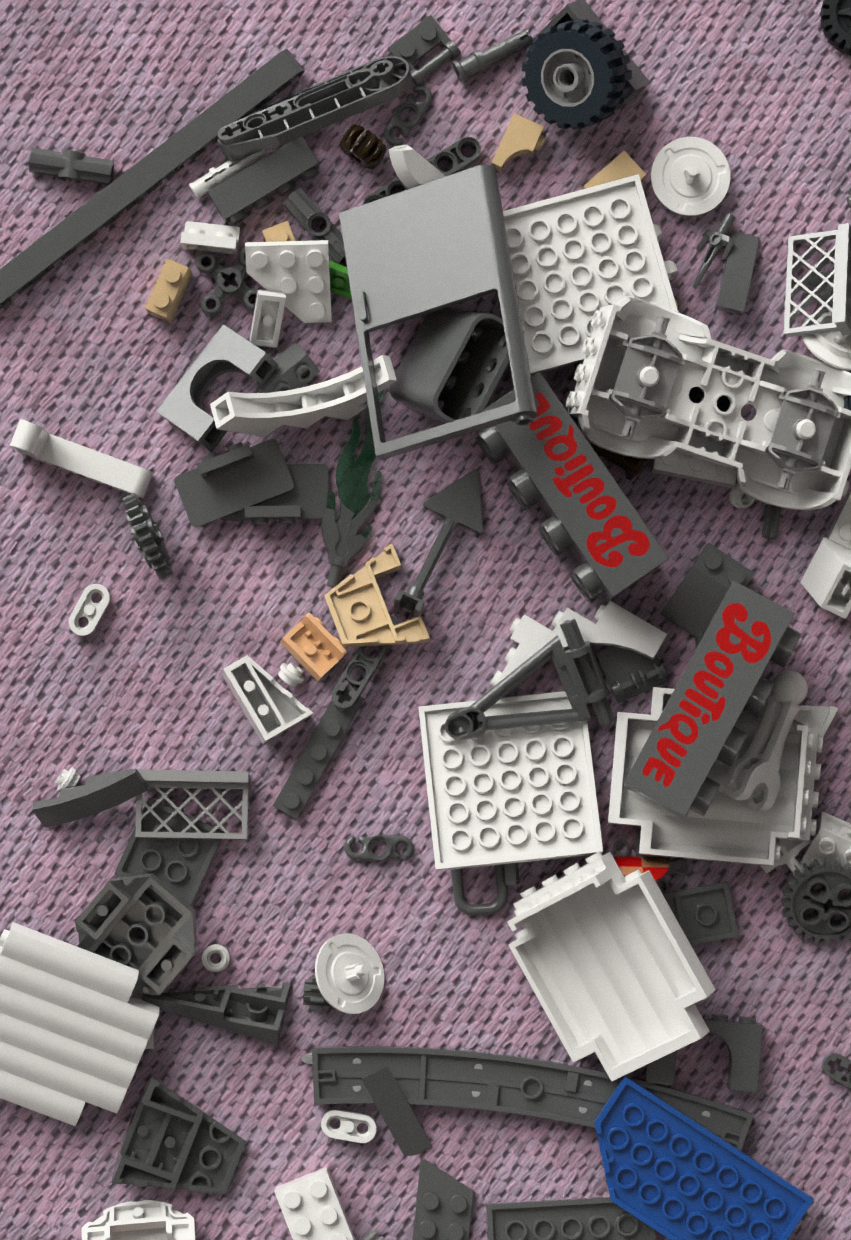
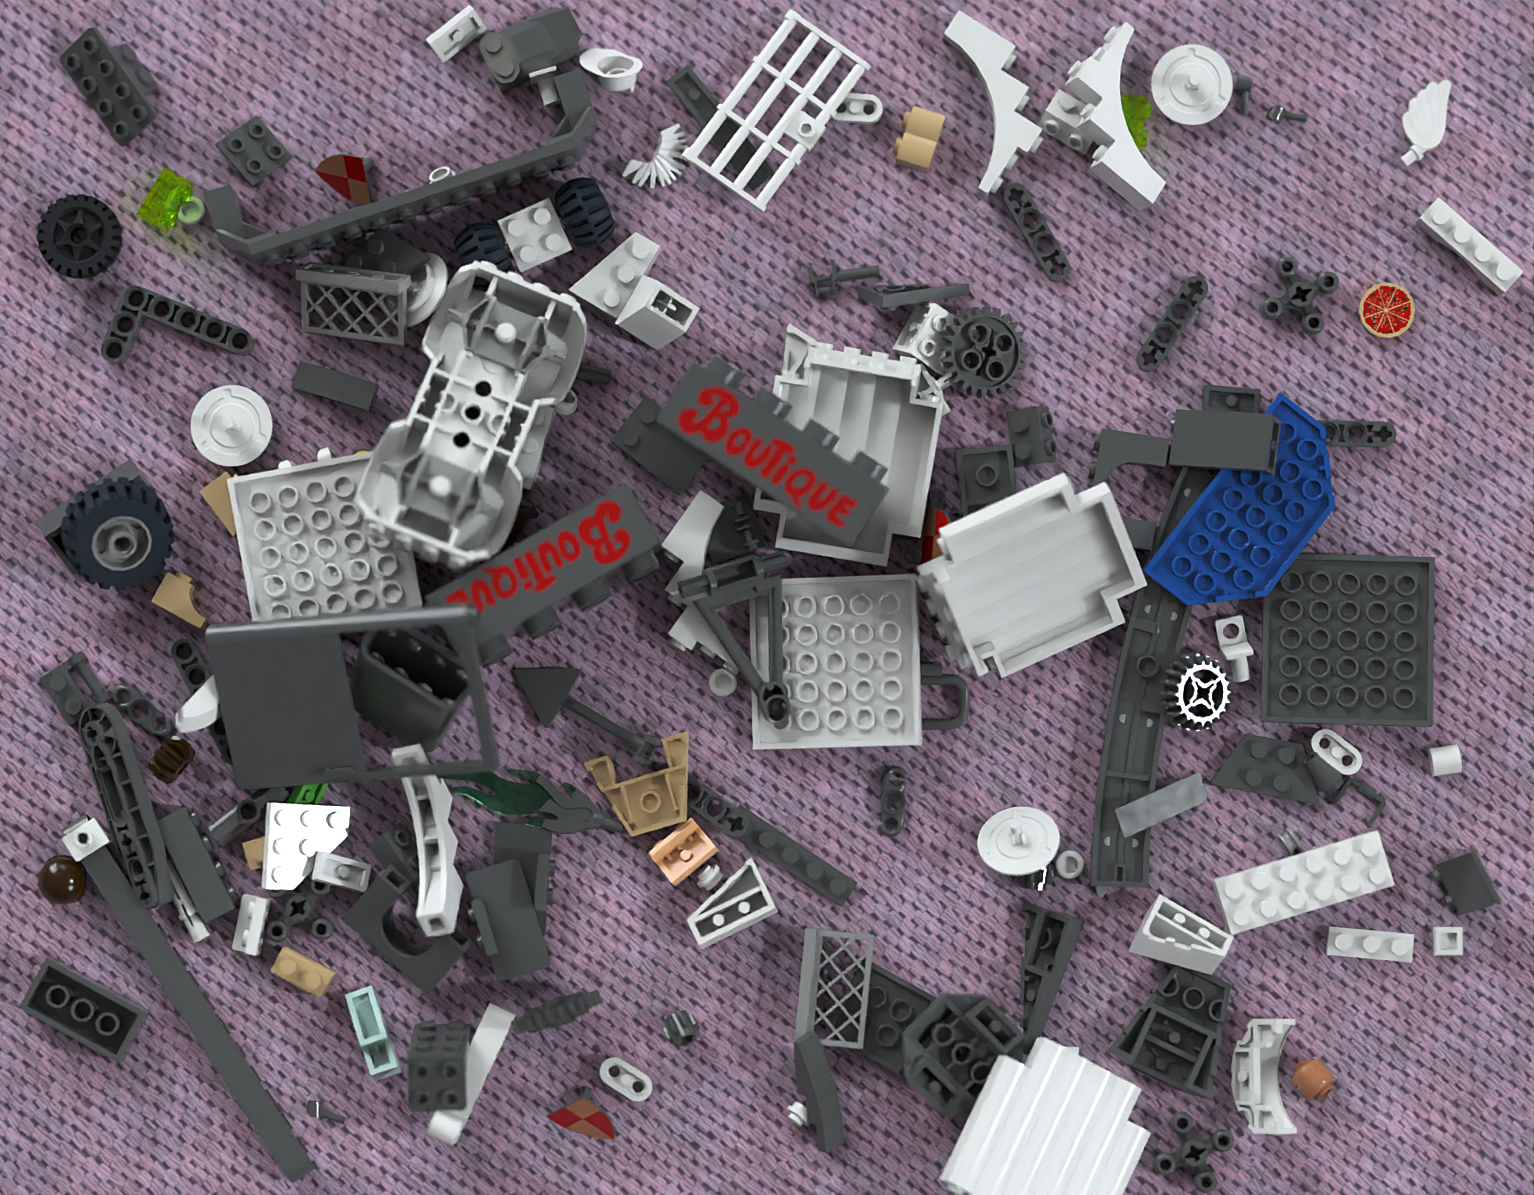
camera: 80 degrees left, 0 degrees up
(37, 313) = (315, 1110): none -> dark grey hand
(50, 572) = (584, 1117): none -> shield
(70, 1162) = (1188, 1139): none -> dark grey gear
(71, 165) = (163, 1063): dark grey piece -> none
(86, 426) = (438, 1066): none -> dark grey bracket
(114, 362) = (373, 1033): none -> light aqua slope
(116, 85) = (84, 1009): none -> dark grey brick
(142, 659) = (681, 1028): none -> dark grey gear
(215, 967) = (992, 986): white plate -> none
(239, 54) = (62, 880): none -> dark brown helmet
(267, 1140) = (1180, 938): none -> white wedge
(279, 72) = (86, 839): none -> white bracket
(331, 1025) = (1069, 864): none -> white tile
(348, 1128) = (1172, 854): white plate -> none
(481, 61) = (92, 630): dark grey pin -> none
(481, 672) = (722, 682): none -> white tile
(509, 1126) = (1186, 691): none -> dark grey gear
(556, 1174) = (1235, 648): none -> white bracket
(717, 241) = (300, 403): dark grey piece -> none
(748, 955) = (1031, 436): none -> dark grey bracket
(760, 1147) = (1224, 441): none -> dark grey panel
(763, 757) = (836, 405): white piece -> none
(788, 112) = (174, 320): none -> dark grey beam
(798, 1157) = (1230, 399): none -> dark grey plate

